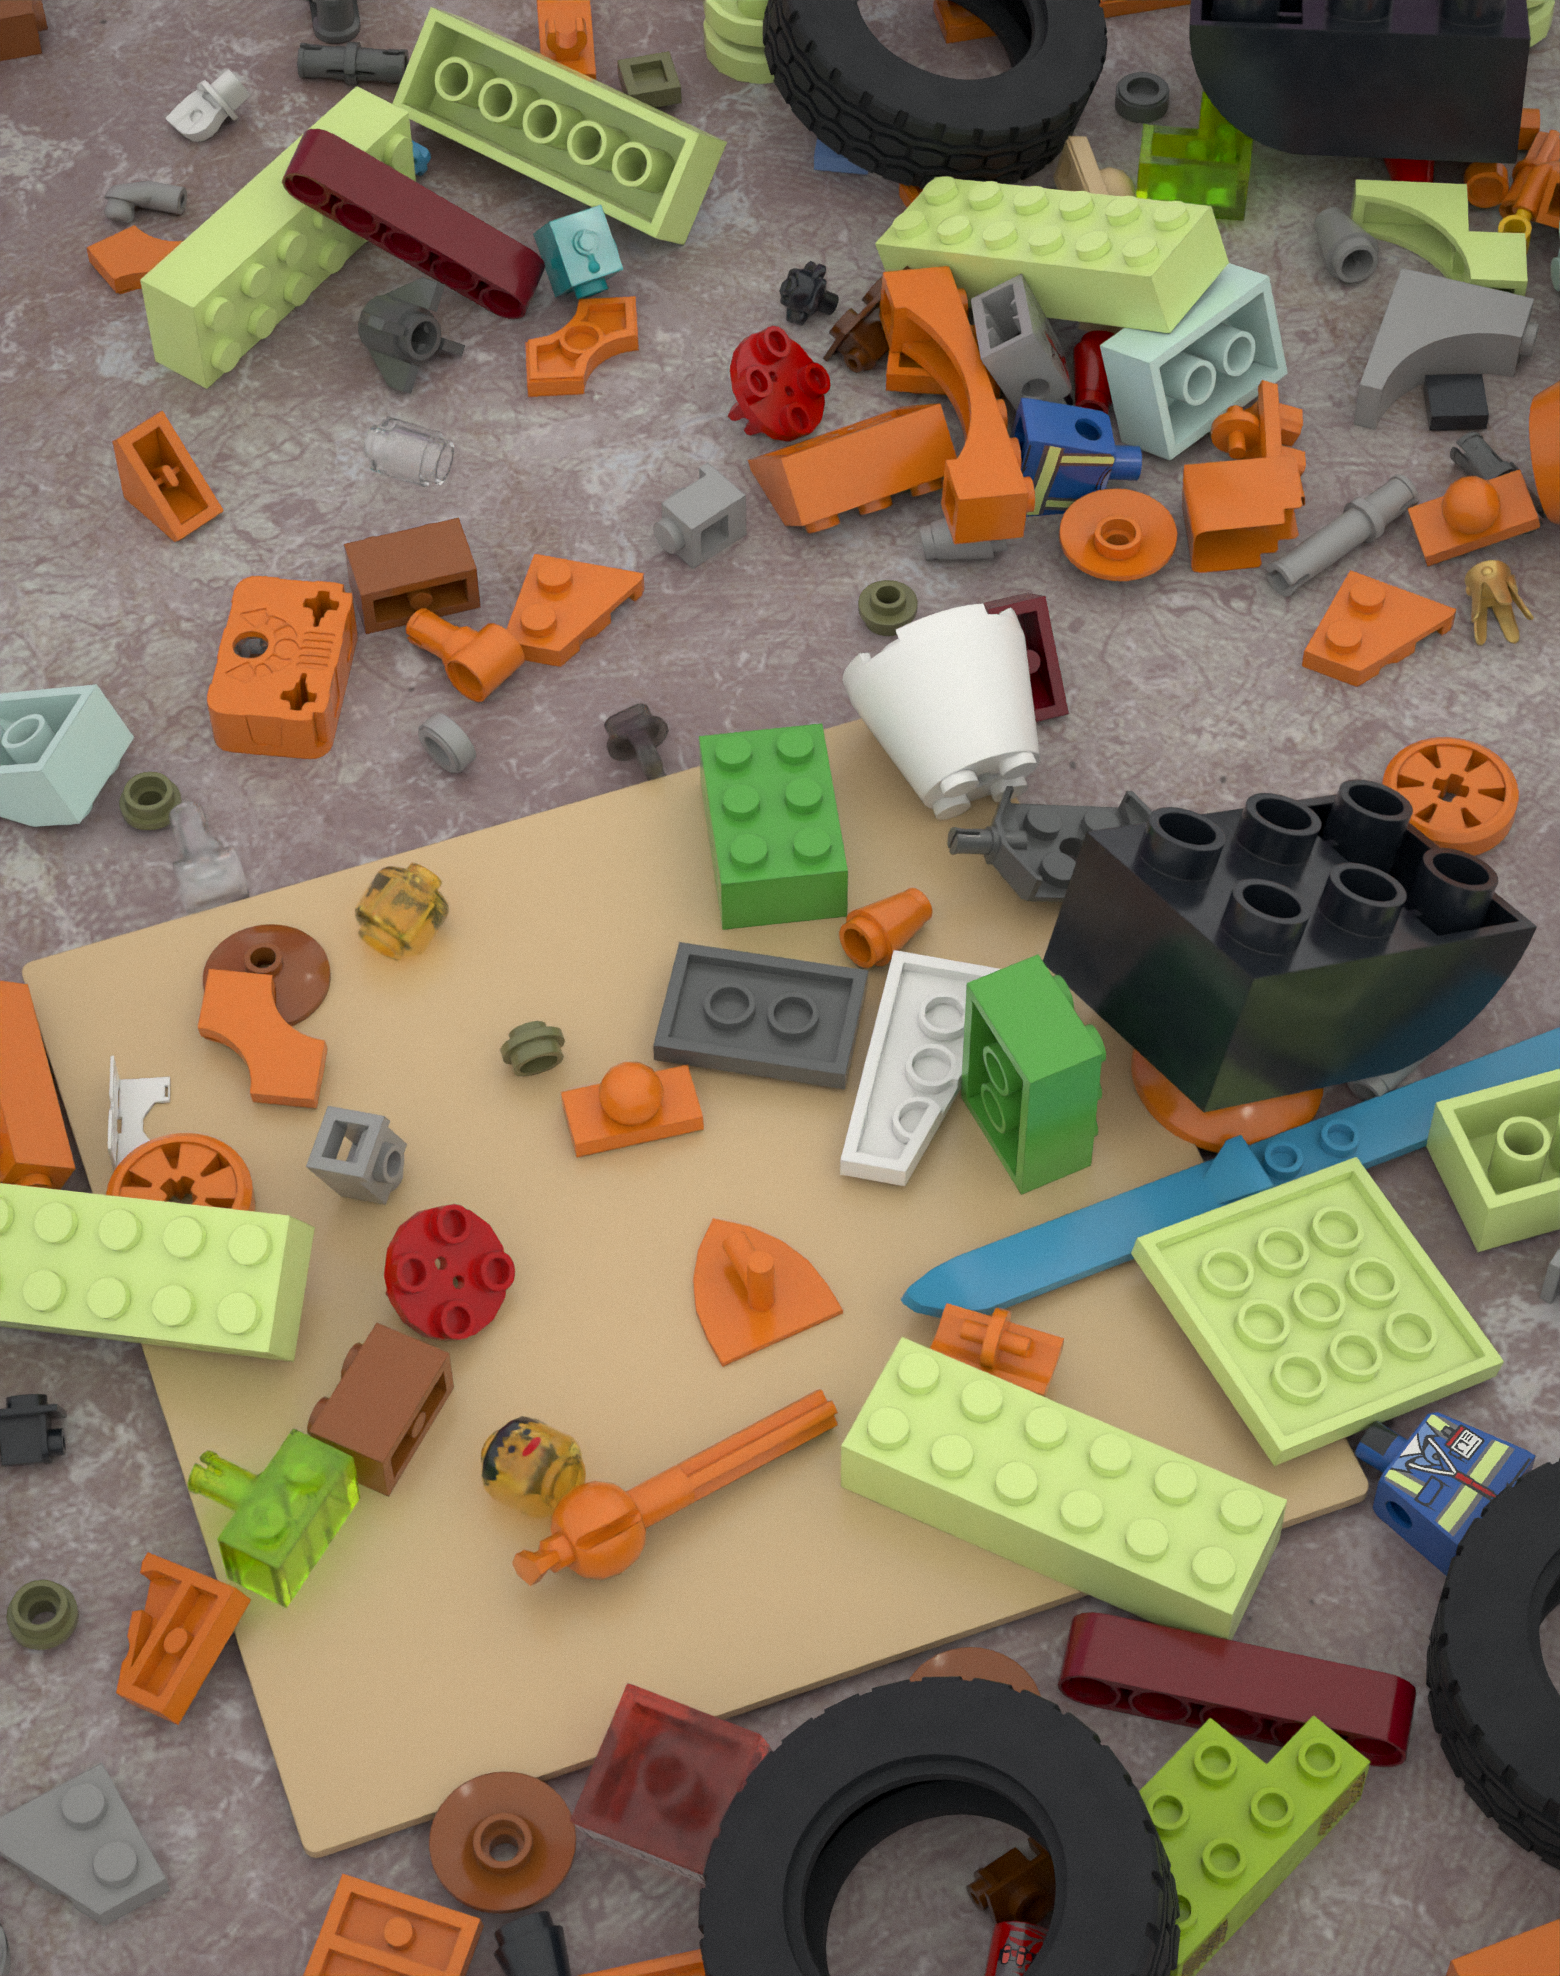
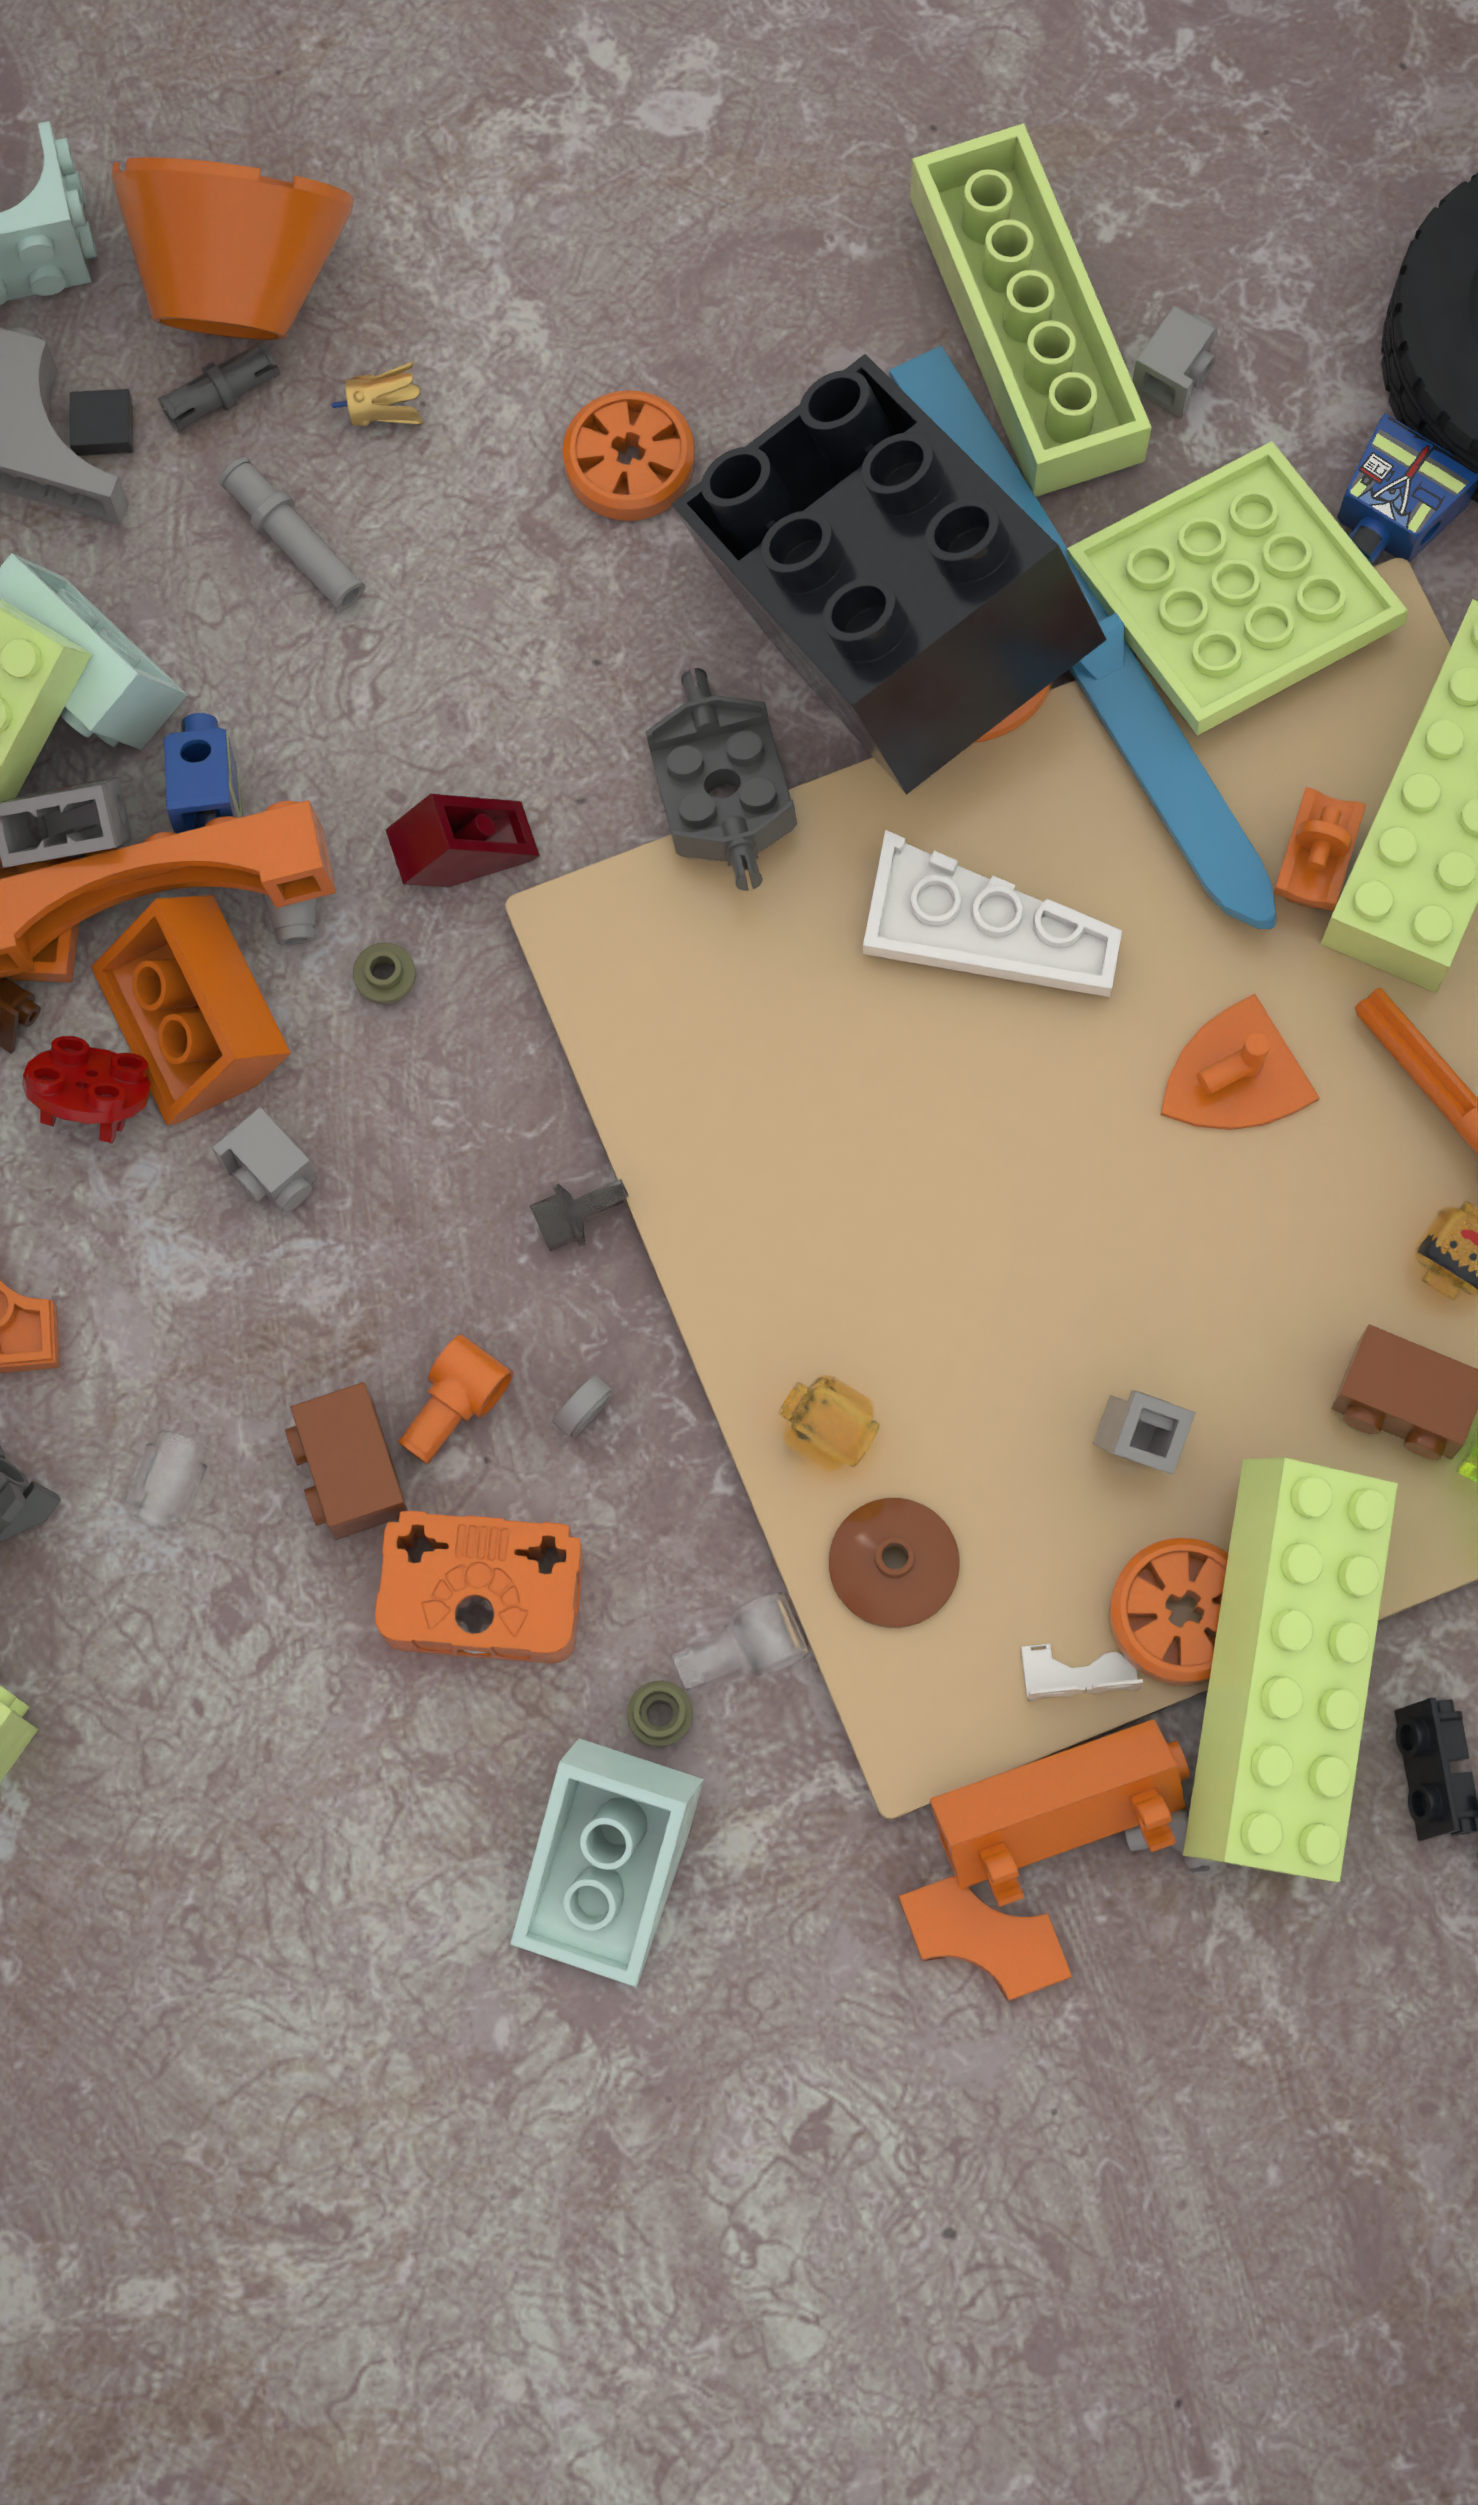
camera: 90 degrees left, 20 degrees up
(163, 478) = (213, 1743): orange slope -> none
(244, 1016) = (961, 1570): orange tile -> none
(466, 1251) = (1268, 1339): red plate -> none
(533, 1048) = (988, 1283): olive plate -> none
(566, 605) = (381, 1303): orange wing -> none
(631, 1108) = (1048, 1190): orange tile -> none
(761, 1015) = (937, 1071): dark grey plate -> none
(773, 826) = (712, 1062): bright green brick -> none
(884, 926) = (827, 958): orange cone -> none
(952, 706) = (583, 879): white cone -> none
(1031, 1072) = (1049, 796): bright green brick -> none
(1089, 372) = (66, 764): red cone -> none
(1118, 534) = (290, 720): orange dish -> none
(1239, 510) = (267, 625): orange piece -> none
(1260, 428) = (164, 603): orange hips -> none
(1371, 628) = (410, 517): orange wing -> none
(1473, 516) = (278, 407): orange tile -> none

